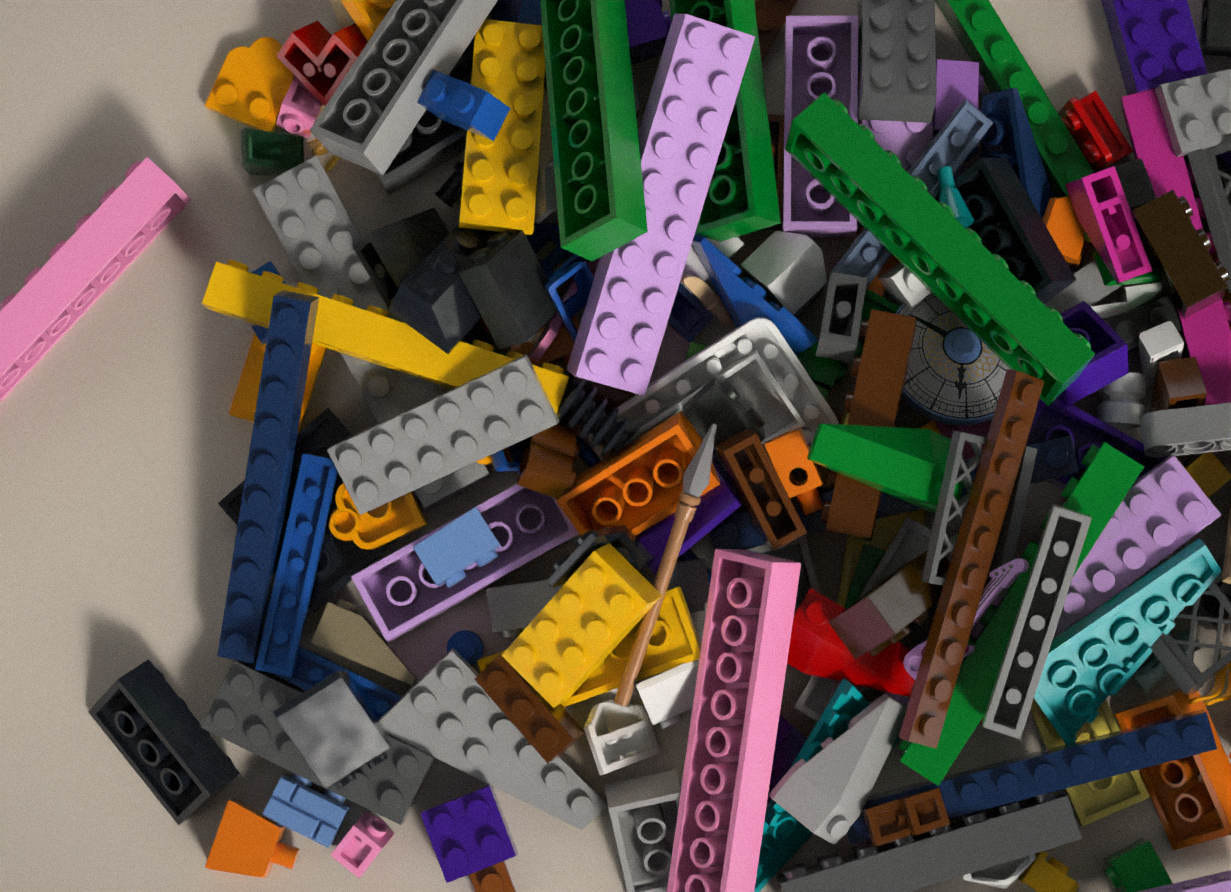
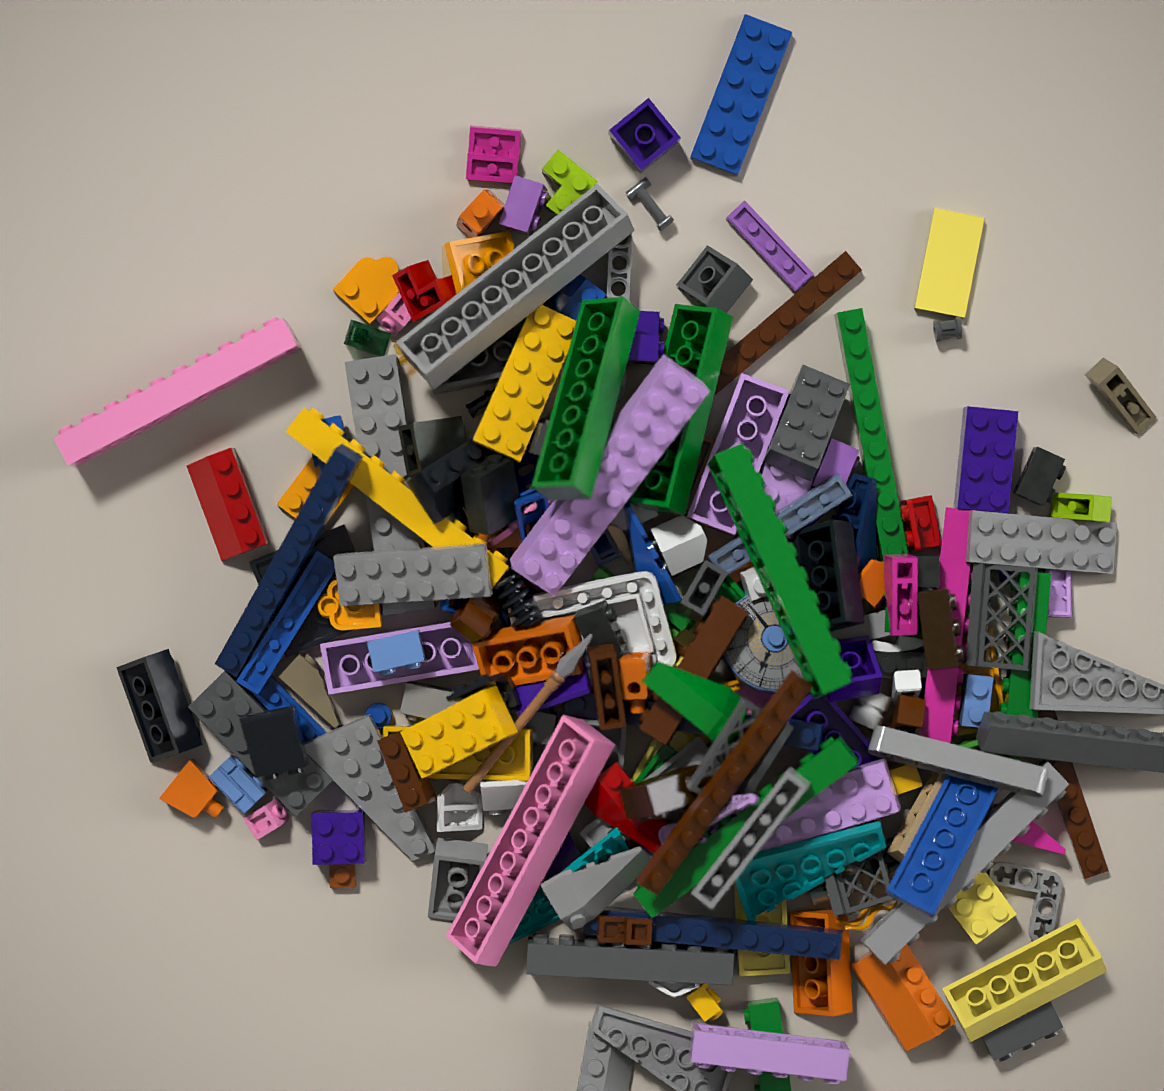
camera: 15 degrees right, 5 degrees up
(162, 437) = (227, 504): none -> red slope
(463, 105) = (503, 363): blue brick -> none
(951, 196) = (803, 541): teal cone -> none

